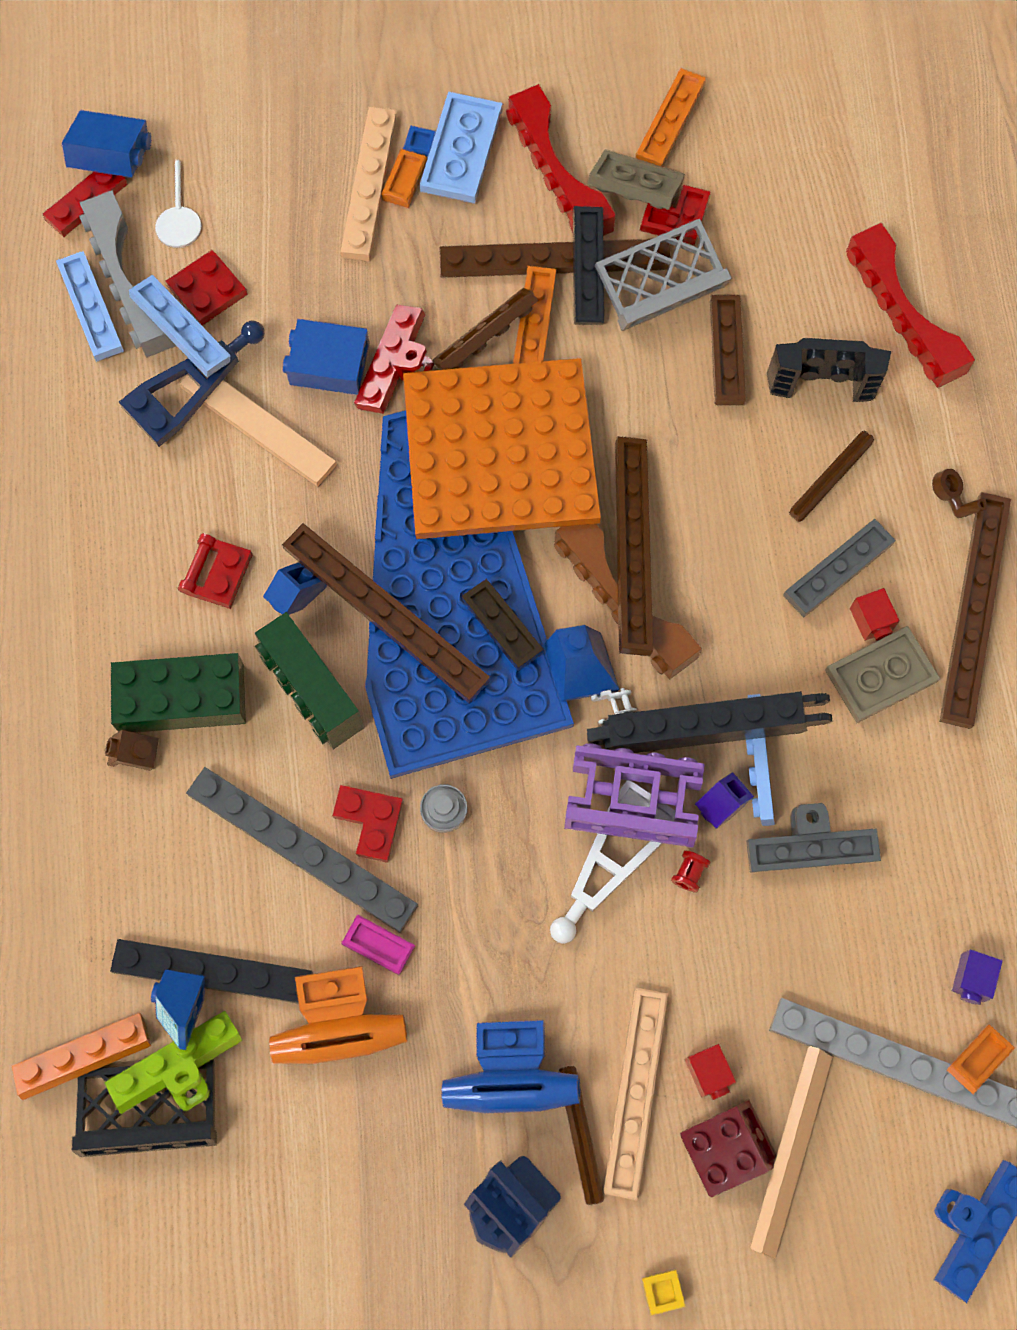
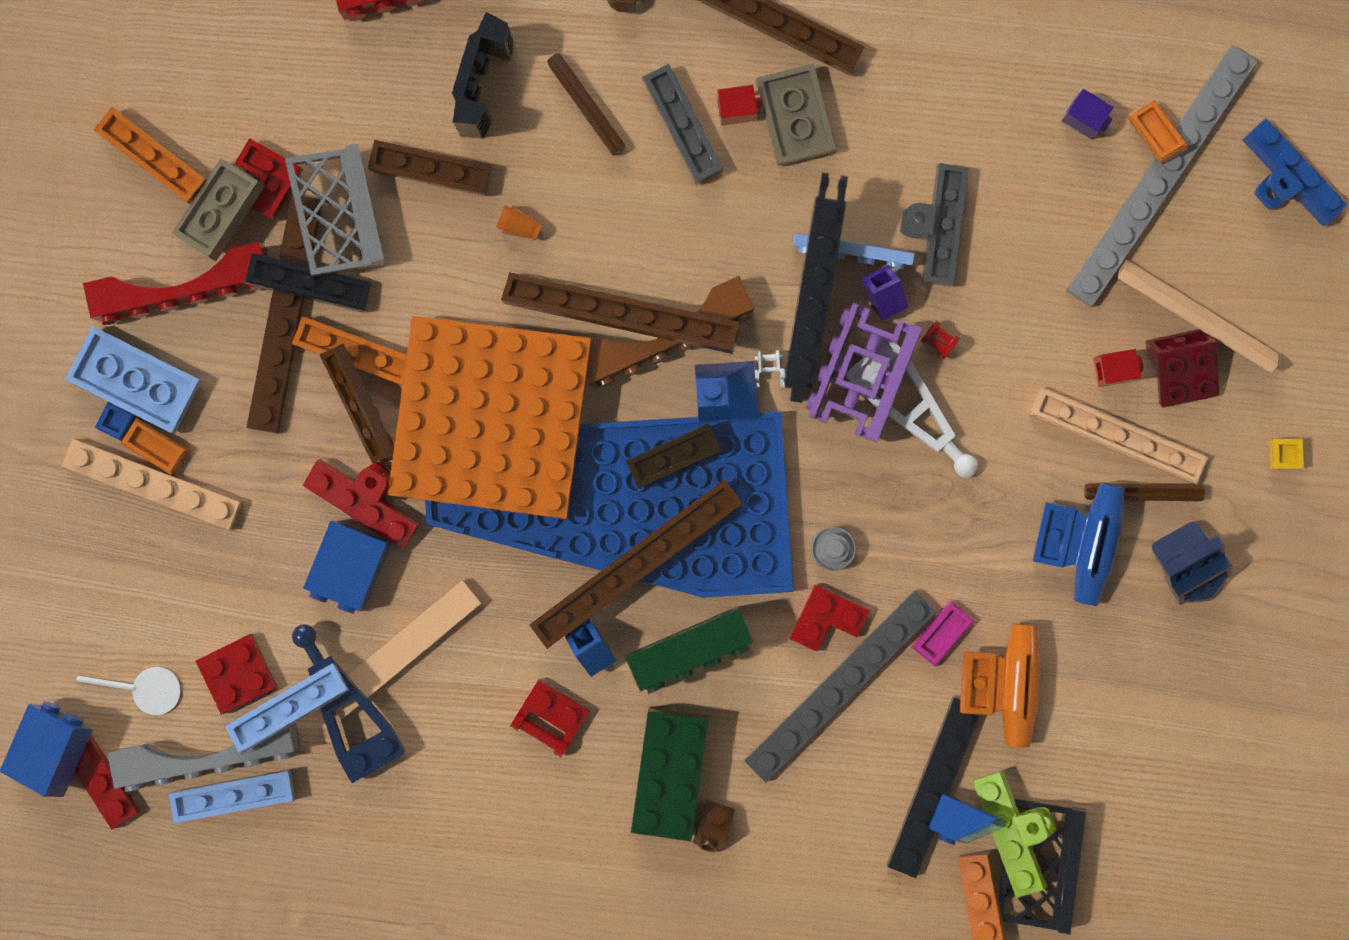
camera: 75 degrees left, 15 degrees up
(696, 437) = (518, 223): none -> orange cone

